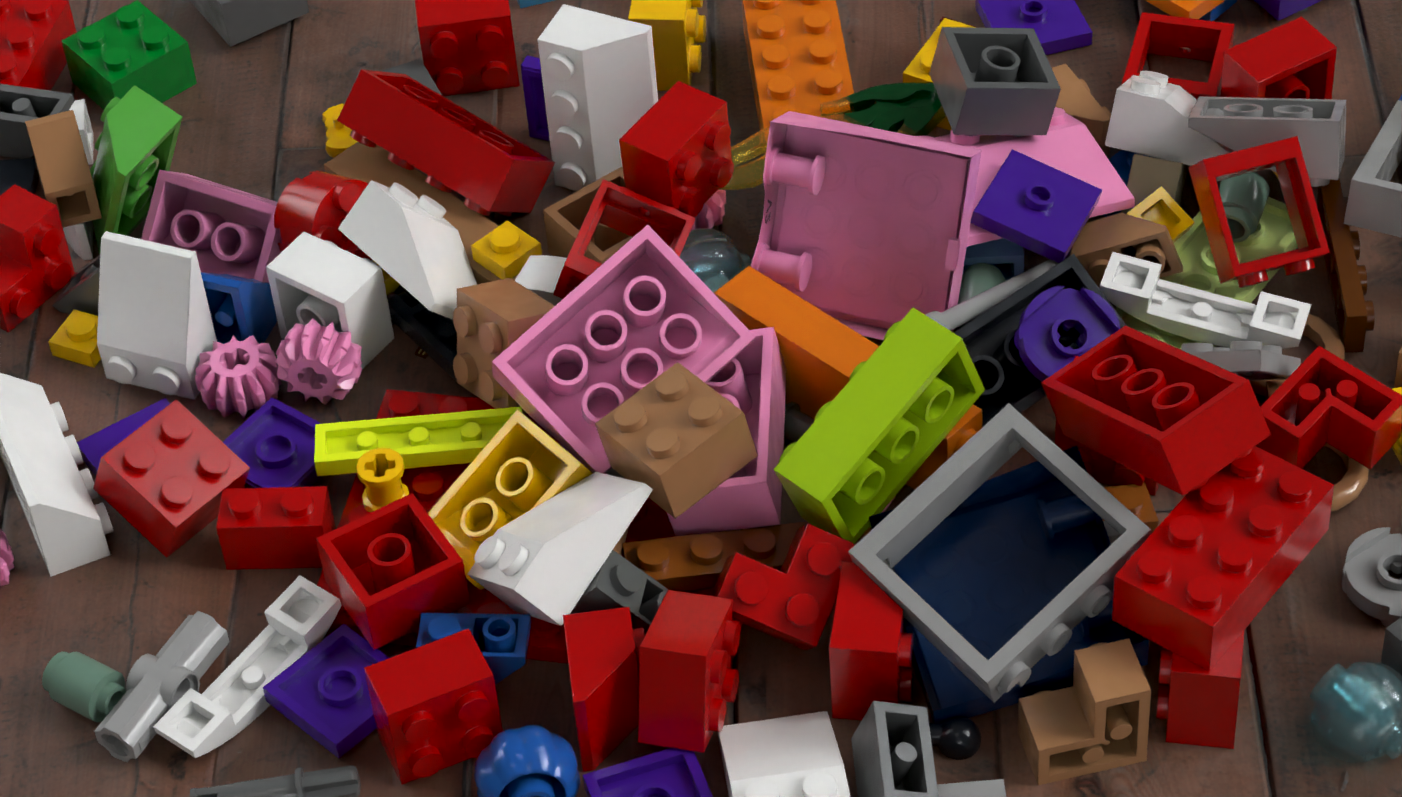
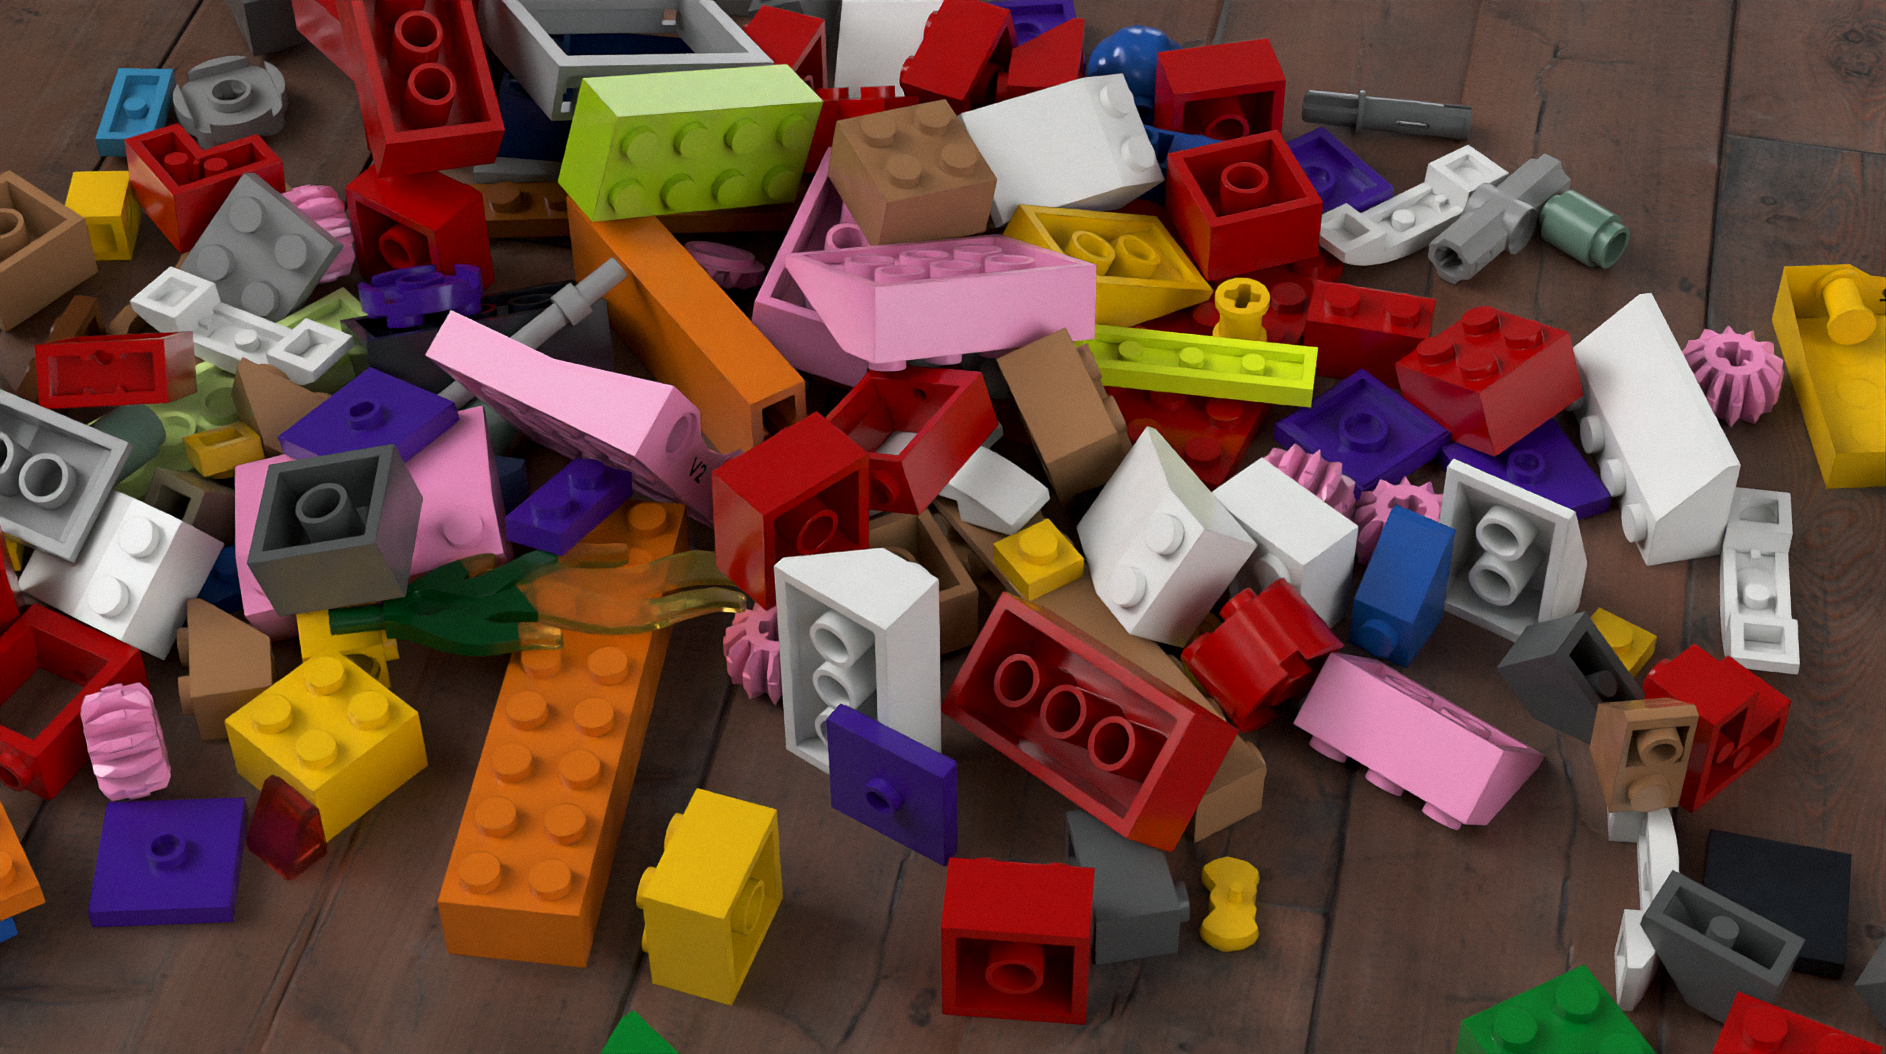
camera: 170 degrees left, 0 degrees up
(131, 150) = (1541, 760): bright green slope -> none
(1094, 41) = (125, 741): none -> bright pink gear

